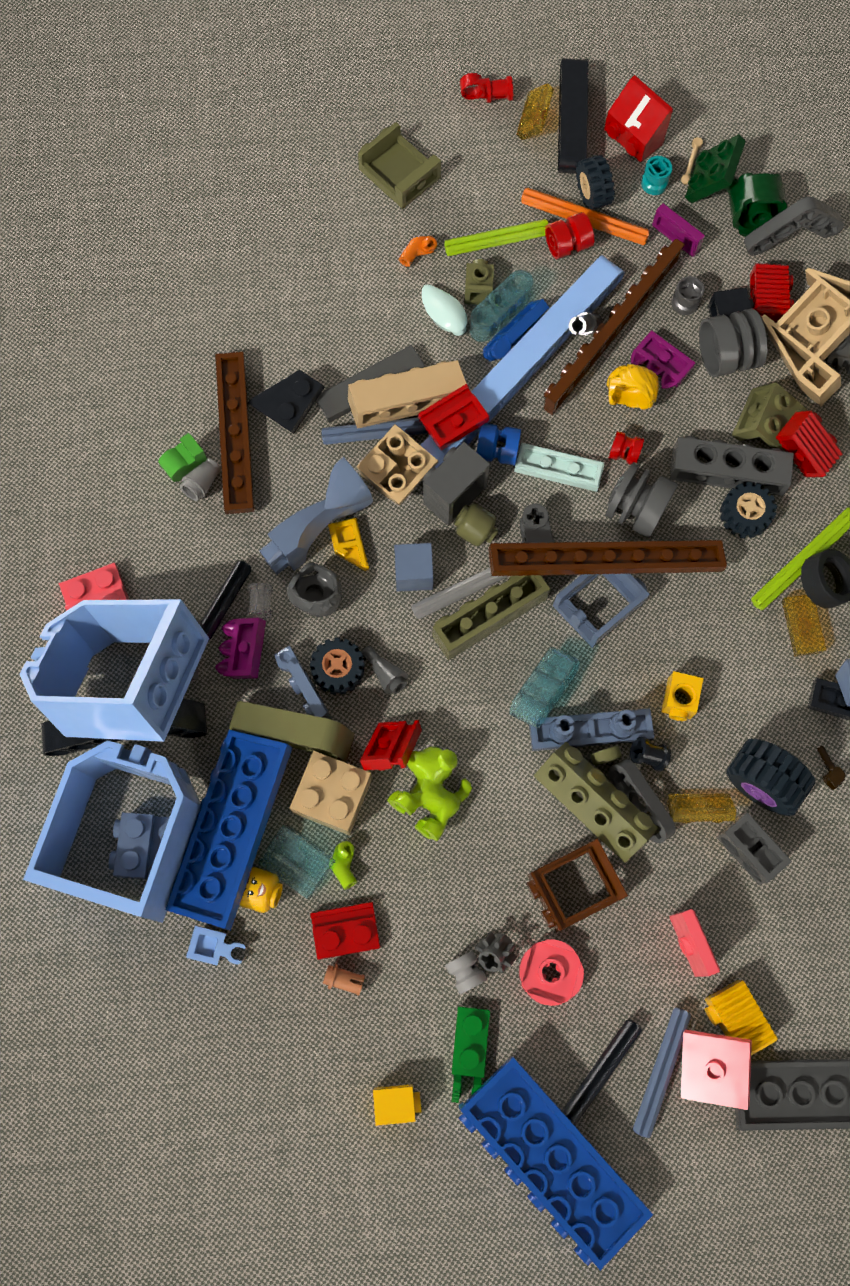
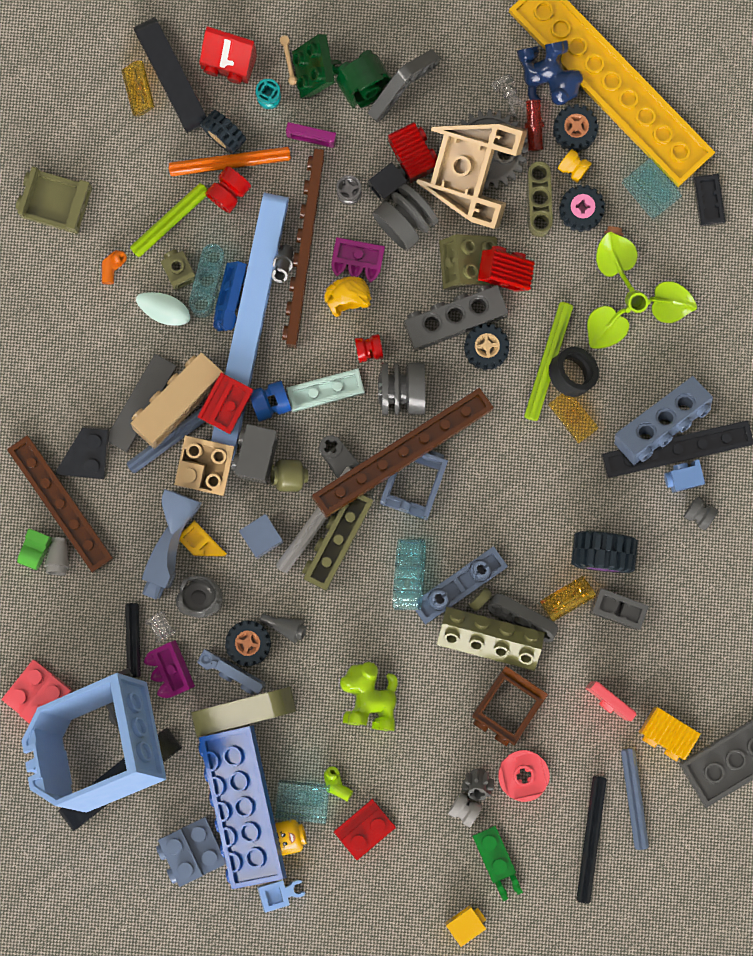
camera: 30 degrees left, 10 degrees up
(68, 811) = (120, 868): light blue container -> none
(331, 792) = (298, 740): tan brick -> none
(343, 979) = (382, 864): nougat pin -> none
(391, 745) = (322, 682): red plate -> none
(486, 88) = (92, 86): red connector -> none
(554, 1163) = (592, 901): blue bracket -> none
(655, 755) = (511, 580): black bush -> none
(688, 685) = (511, 512): yellow brick -> none
(716, 1069) = (669, 777): plate -> none
(835, 775) = (651, 520): dark brown hand -> none

